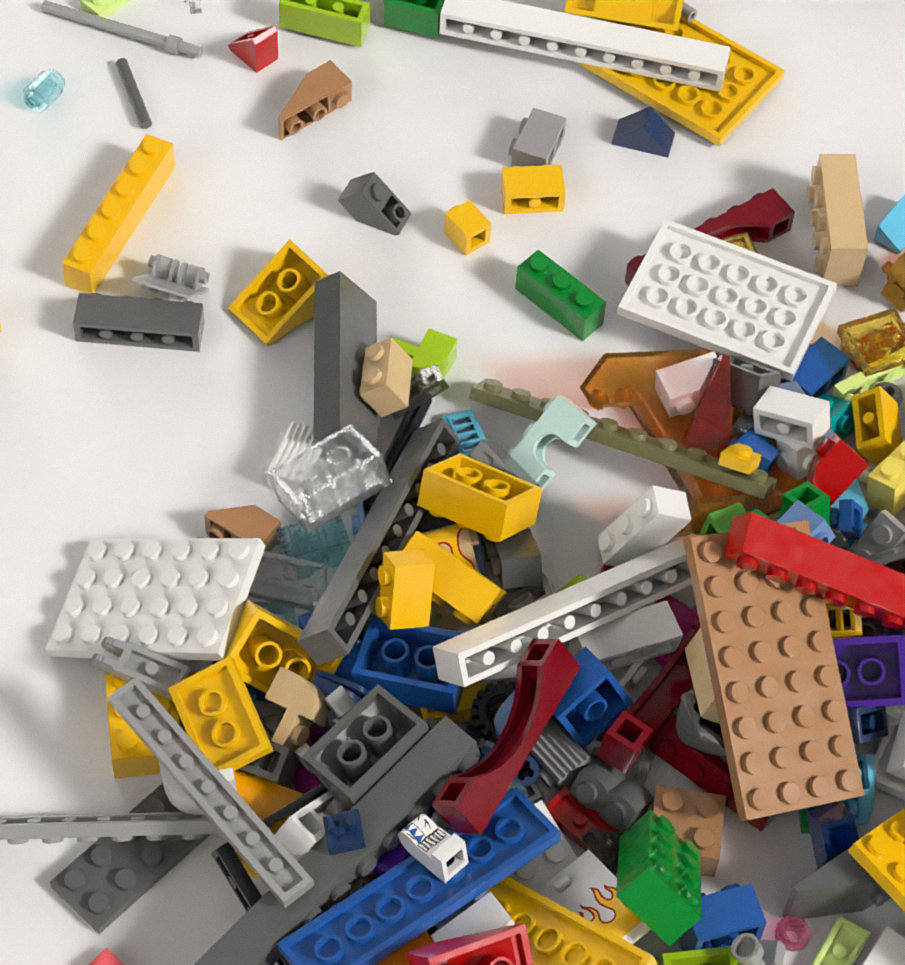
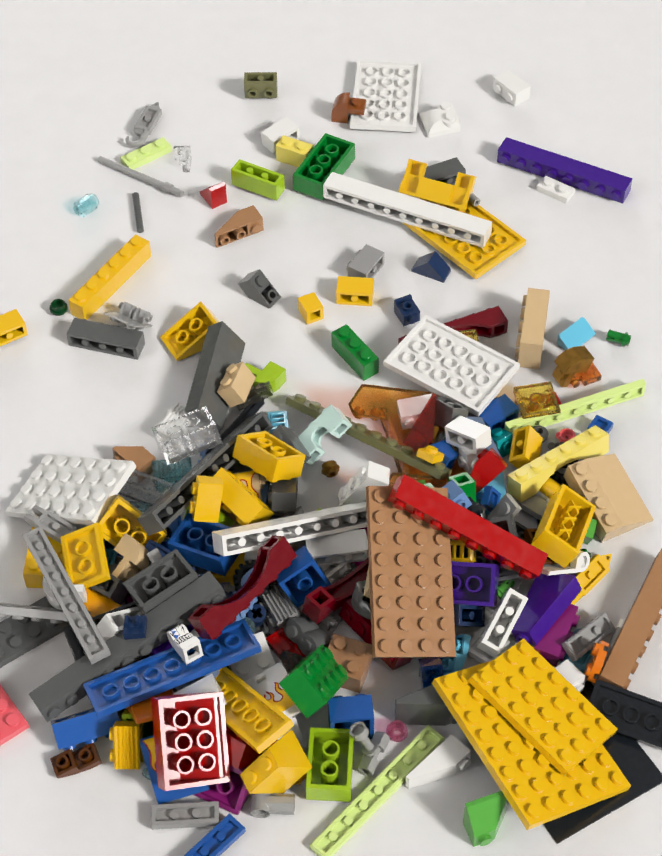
camera: 15 degrees right, 5 degrees down
(42, 276) = (58, 307): none -> dark green plate
(570, 500) = (330, 468): none -> pearl gold plate
(624, 213) = (406, 310): none -> dark blue brick

